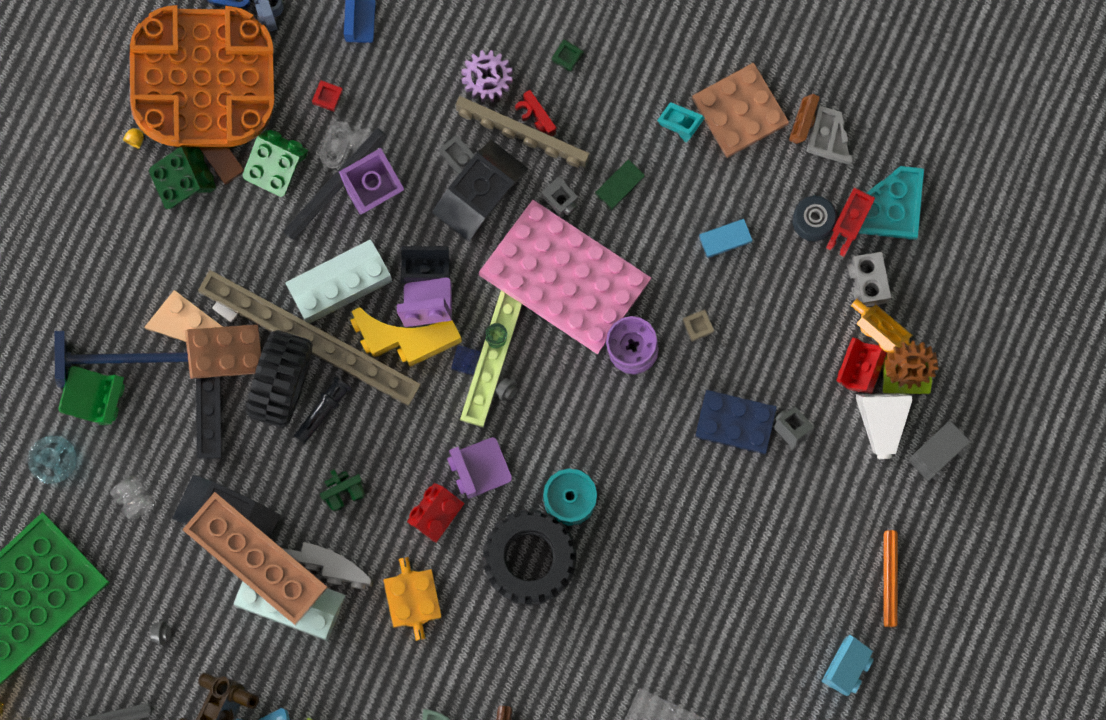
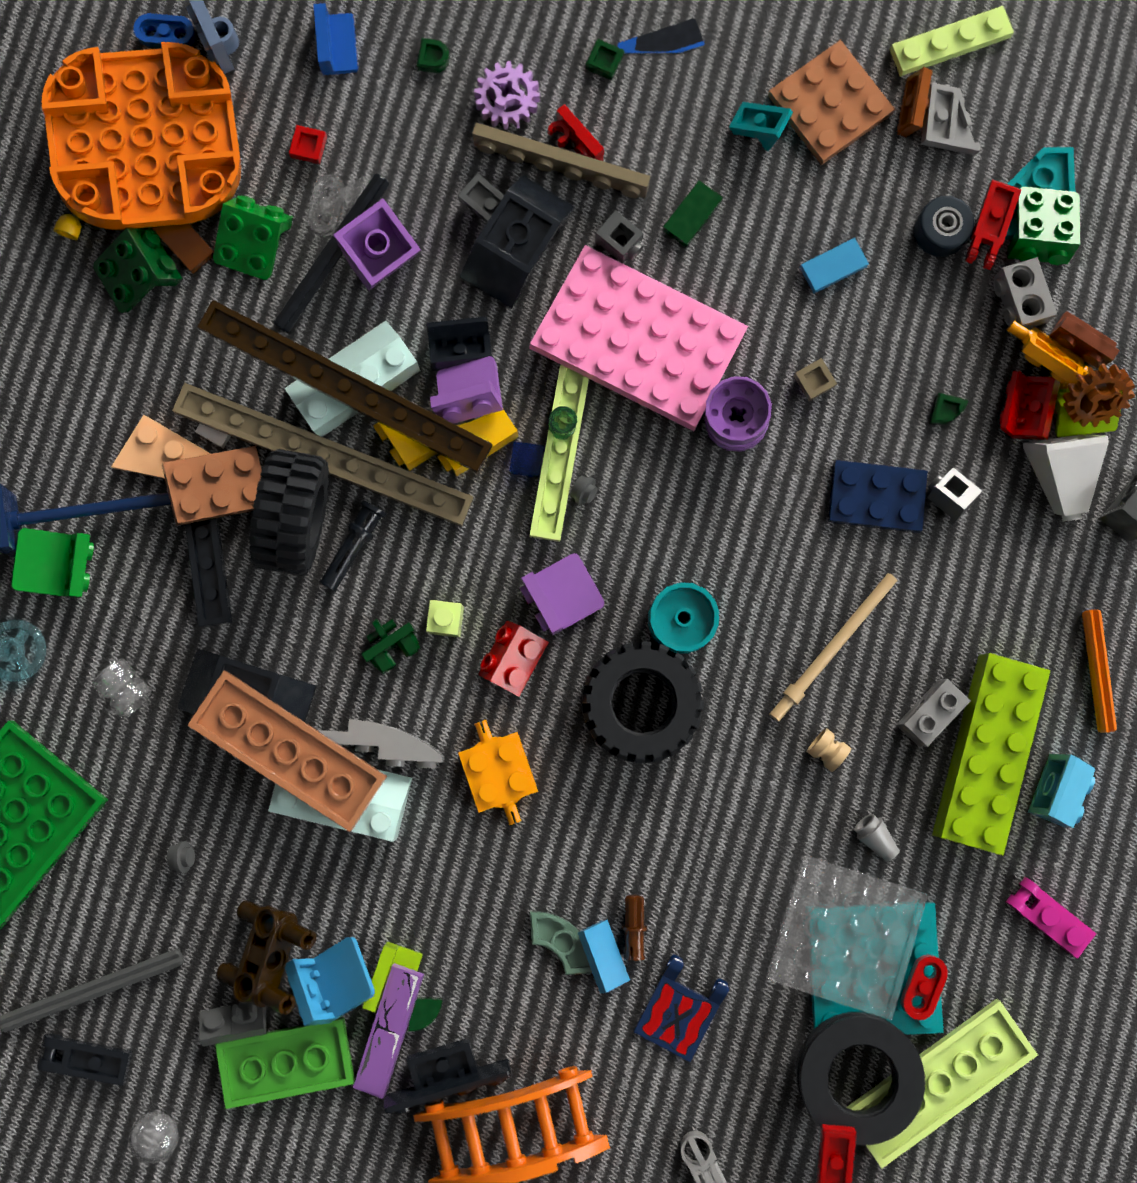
camera: 10 degrees left, 5 degrees up
(333, 288) = (345, 386): none -> dark brown plate
(386, 475) = (445, 618): none -> yellowish green brick
(433, 37) = (432, 56): none -> dark green tile
(622, 45) = (670, 39): none -> black sticker
(650, 566) = (795, 693): none -> tan bar
(671, 614) = (831, 752): none -> tan wheel
(699, 685) = (876, 836): none -> light grey cone
(754, 593) = (933, 712): none -> light grey brick
(795, 630) = (991, 753): none -> lime brick
(799, 360) = (946, 408): none -> dark green tile
(841, 73) = (951, 41): none -> yellowish green plate
(893, 227) = (1046, 226): none -> green bracket
(911, 318) = (1084, 340): none -> copper bracket

